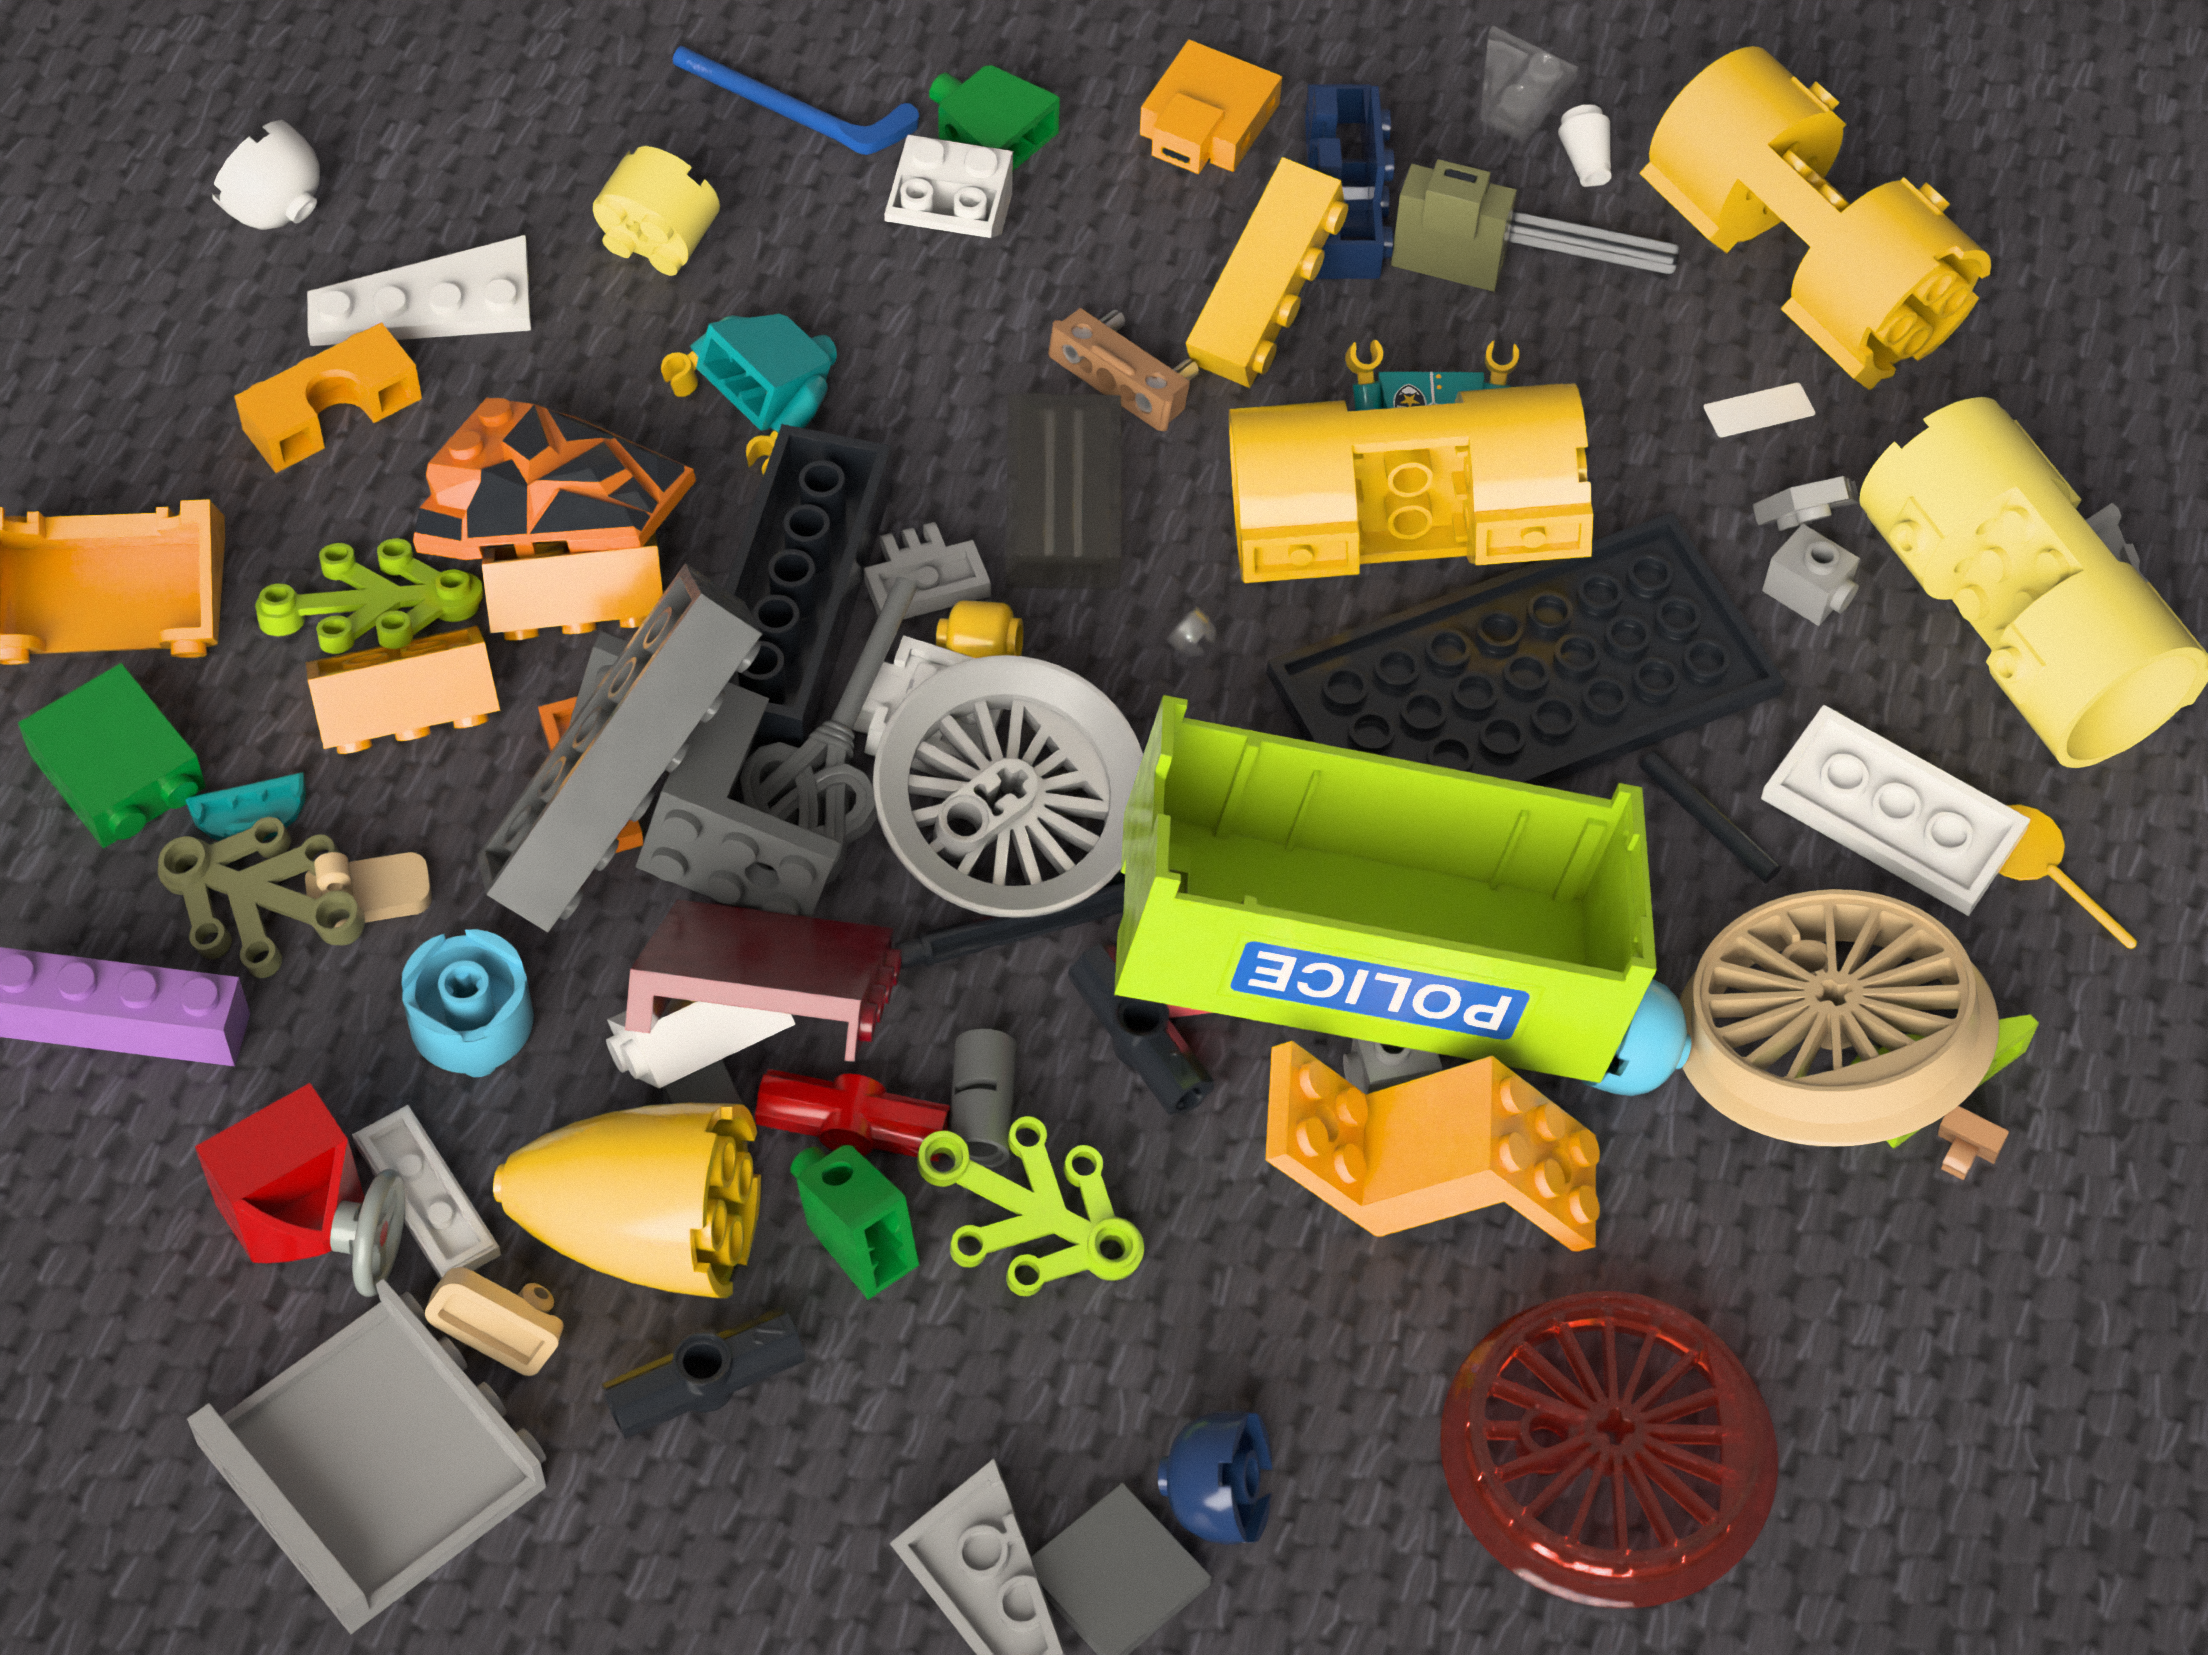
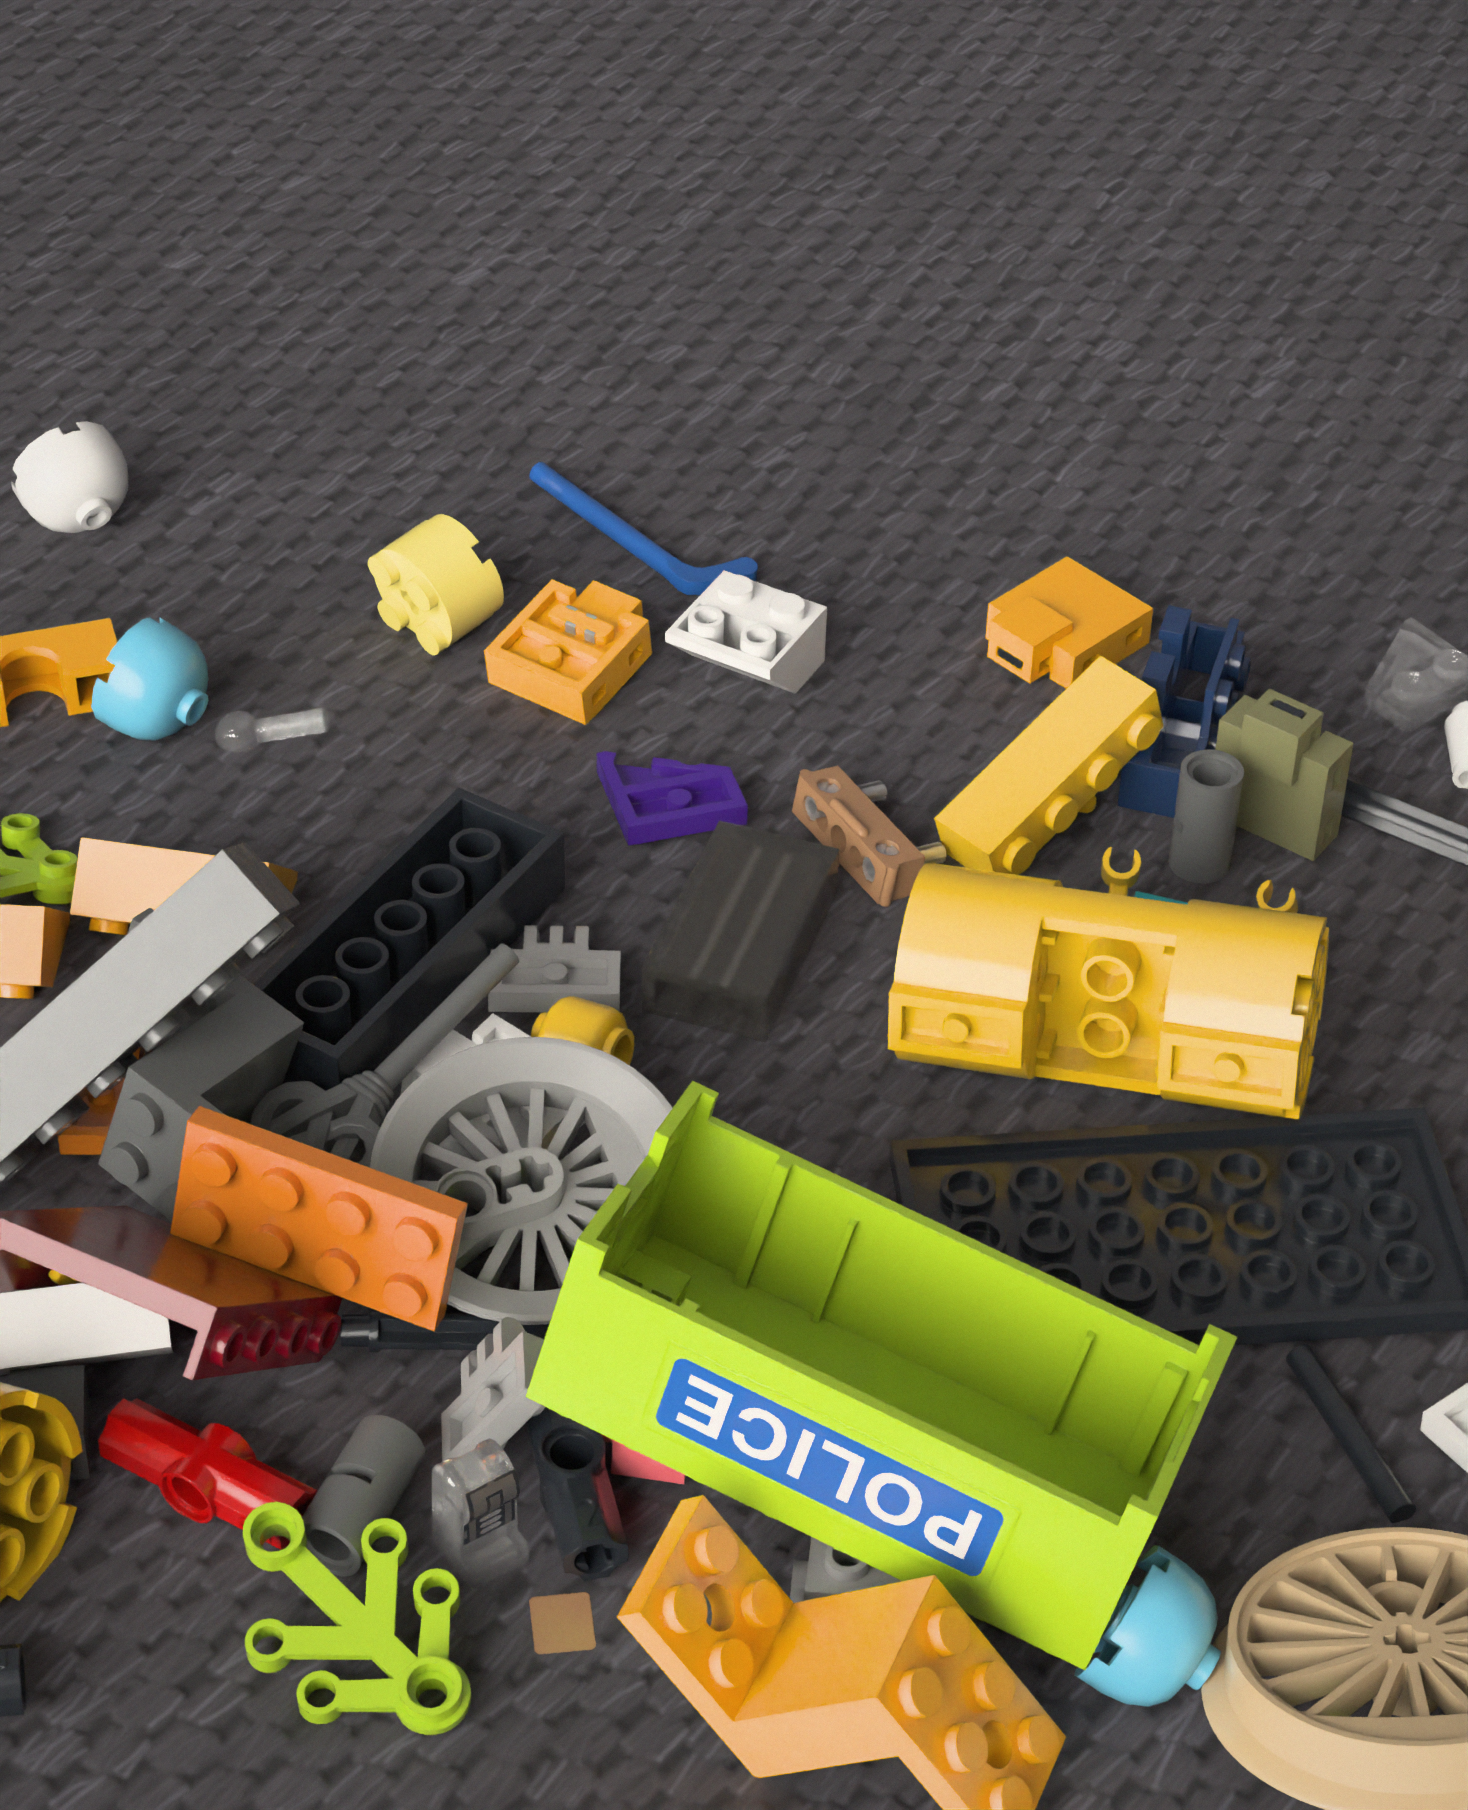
camera: 20 degrees right, 15 degrees down
(440, 297) = (228, 622): white wing -> none
(455, 378) = (154, 684): none -> medium azure cylinder
(543, 477) = (185, 778): wedge -> none
(568, 390) = (243, 731): none -> clear bar
(762, 368) = (472, 742): teal torso -> none
(797, 243) = (571, 649): none -> light orange piece
(842, 1199) = (147, 1542): green torso -> none
(867, 878) = (317, 1218): none -> orange plate
(945, 373) = (670, 797): none -> dark purple wing
(996, 112) = (841, 575): green torso -> none
(1062, 983) = (492, 1390): none -> light grey hinge
(1086, 1090) = (478, 1514): none -> clear leg
(1178, 1155) = (562, 1623): none -> medium nougat sticker
(1190, 630) = (819, 1095): clear hinge -> none
(1408, 282) = (1205, 816): none -> dark grey pin

